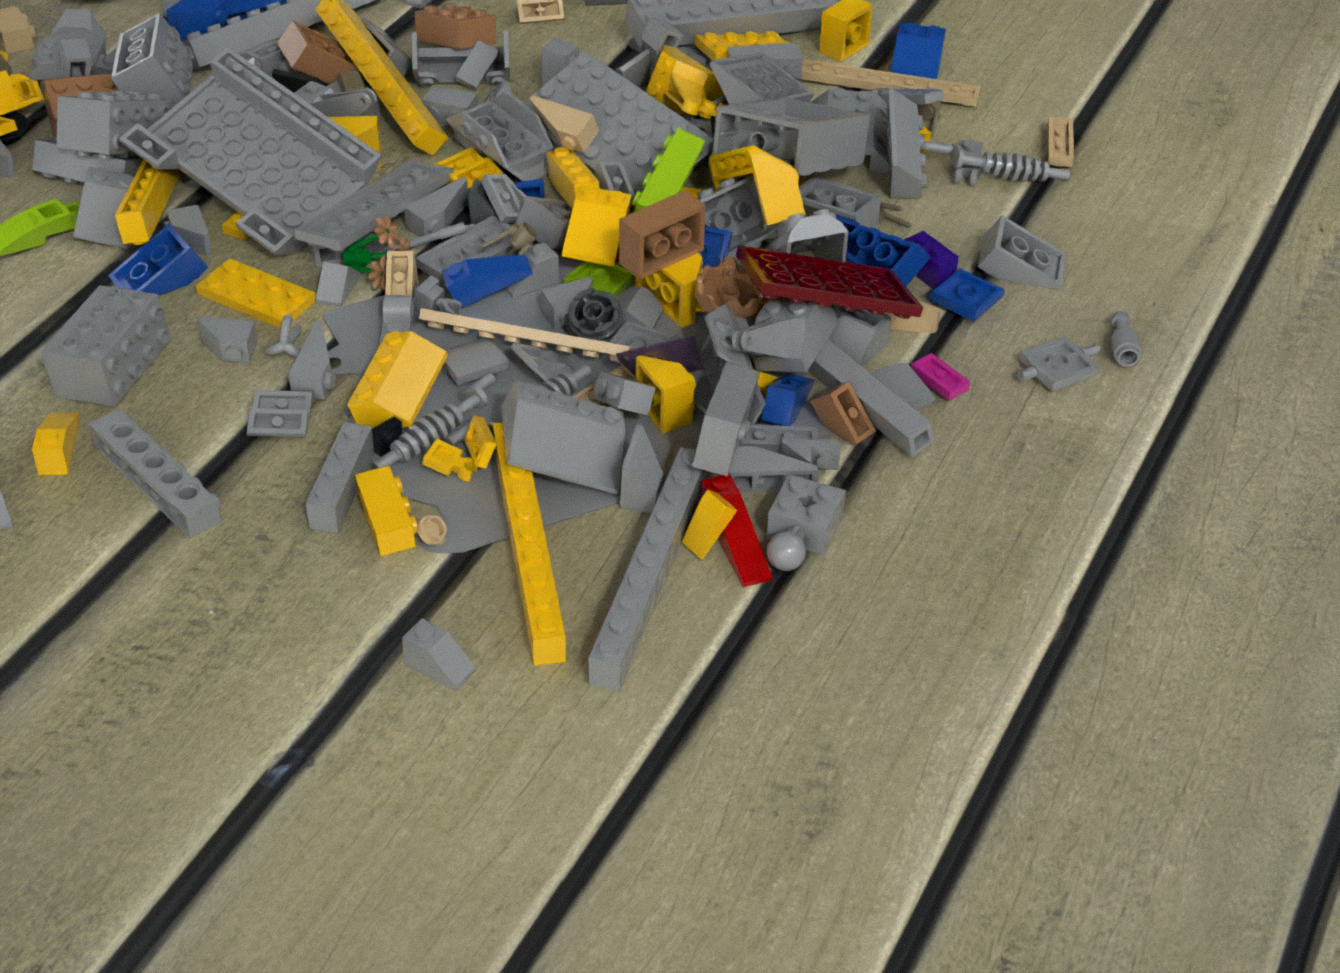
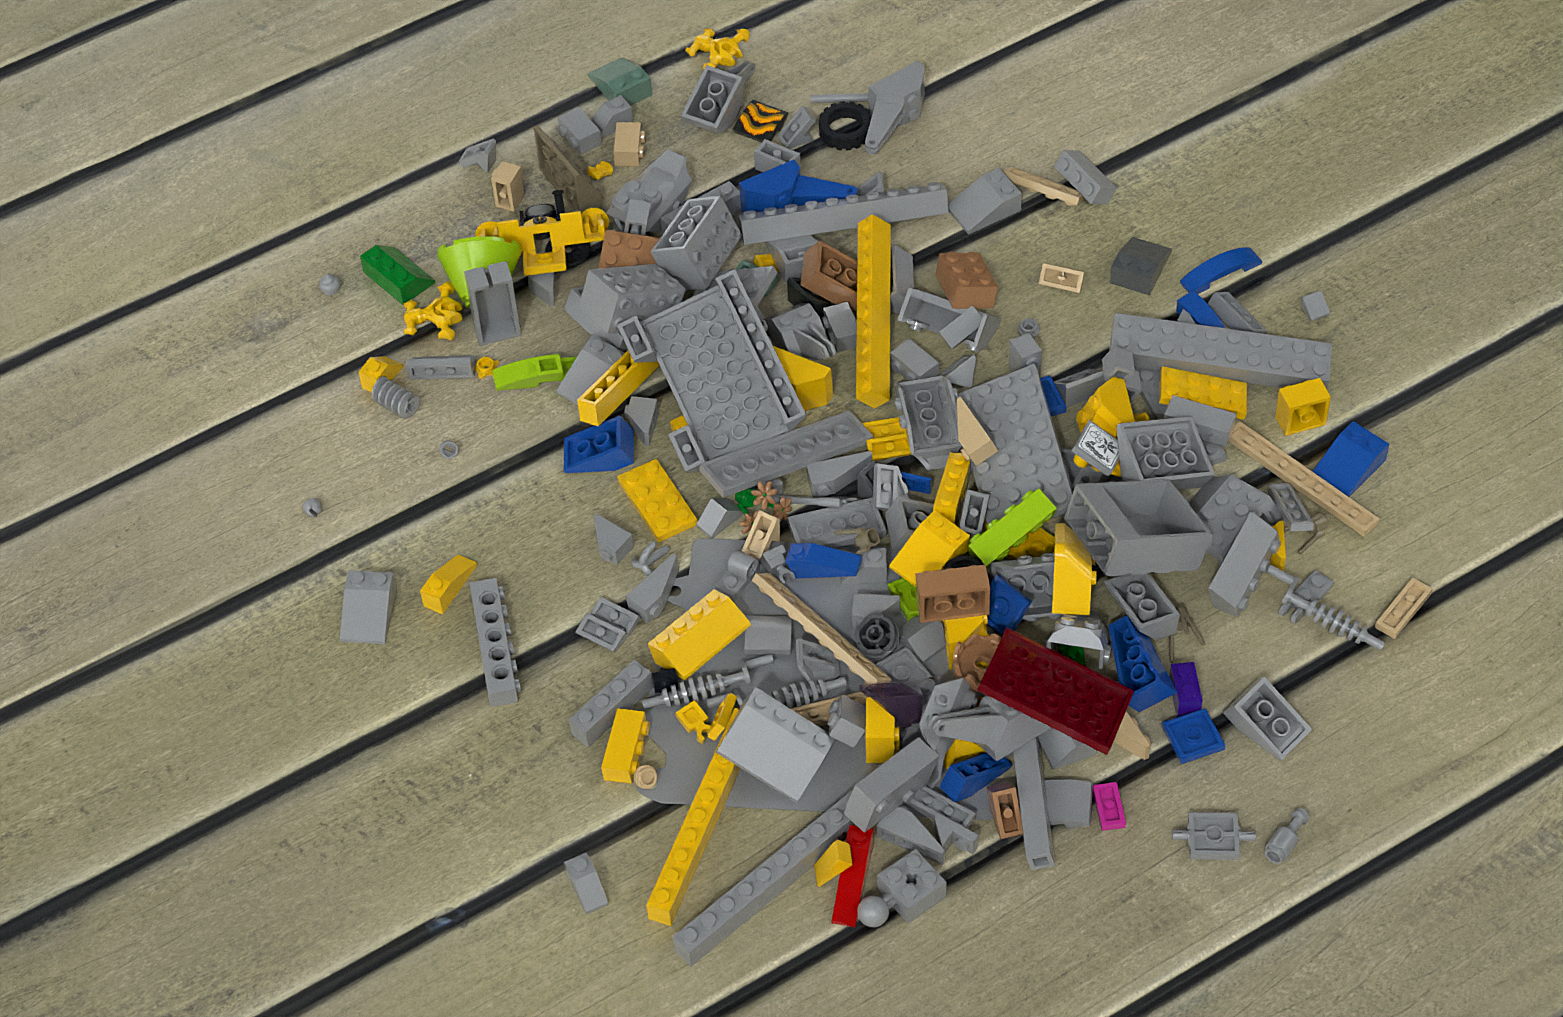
camera: 35 degrees right, 10 degrees up
(106, 345) = (518, 515): light grey brick -> none
(350, 80) = (843, 318): dark tan tile -> none
(535, 52) = (1028, 326): none -> light grey plate
(640, 475) = (811, 796): light grey slope -> none
(699, 92) = (1097, 448): none -> tile

